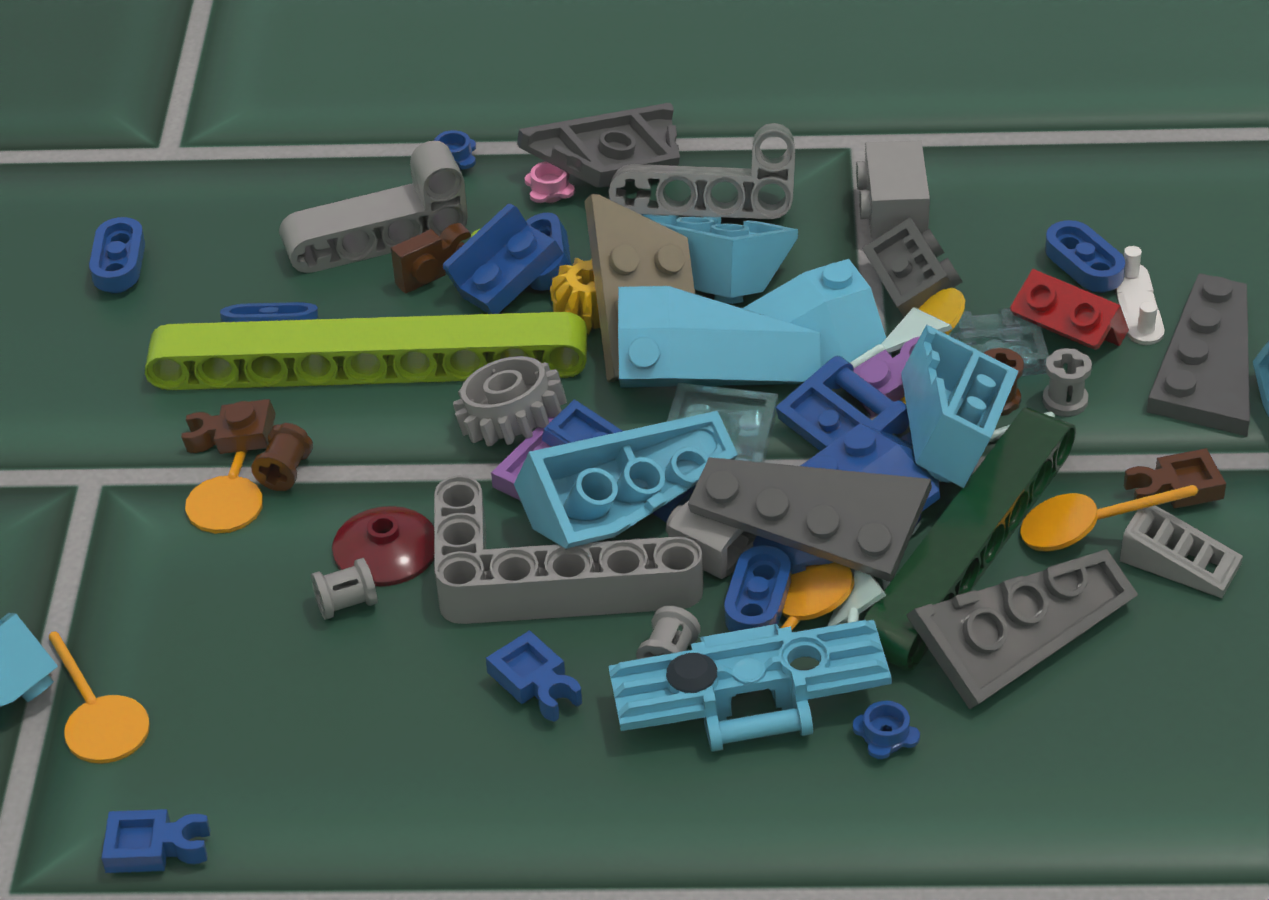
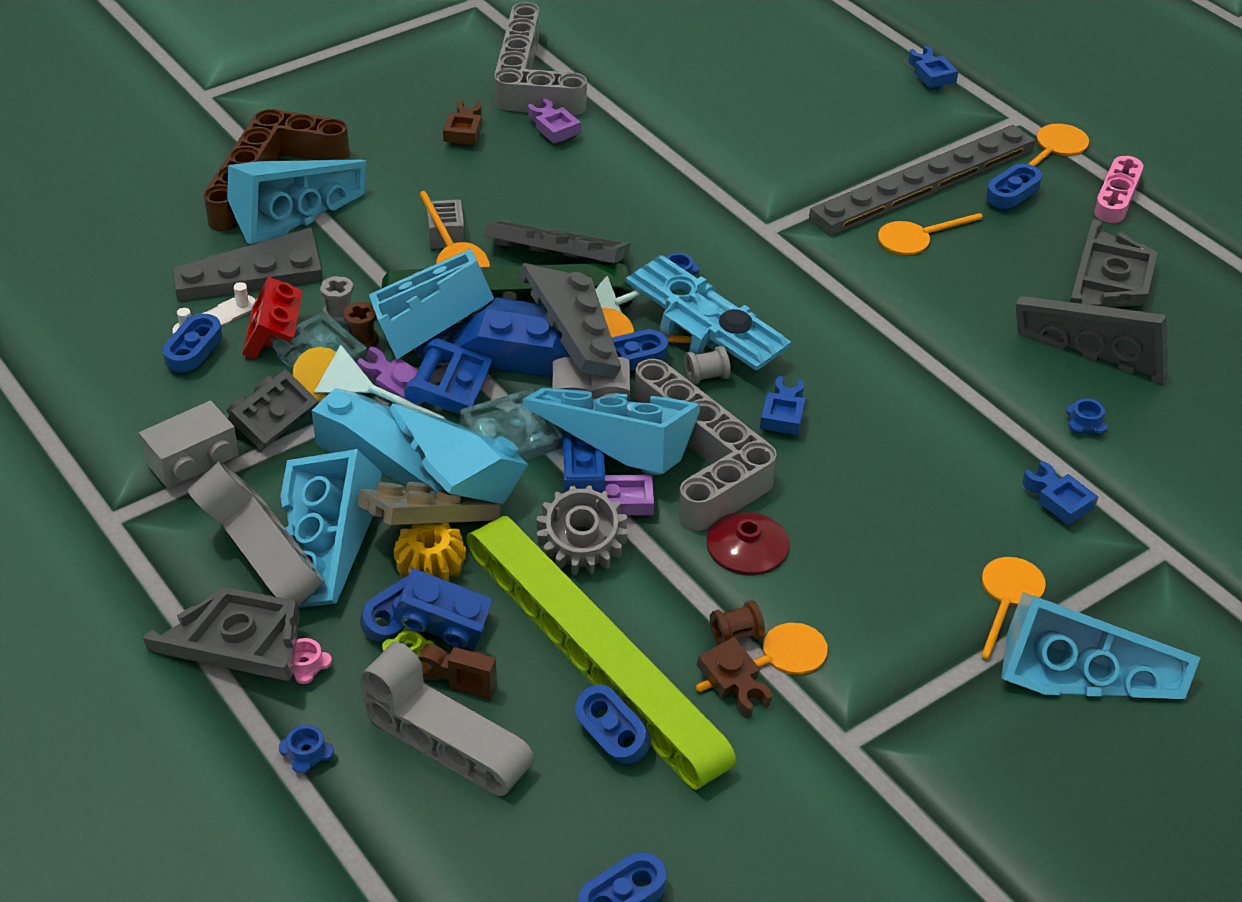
camera: 130 degrees left, 0 degrees up
(344, 588) = (811, 522): light grey bush -> none
(1177, 472) = (388, 233): reddish brown plate -> none

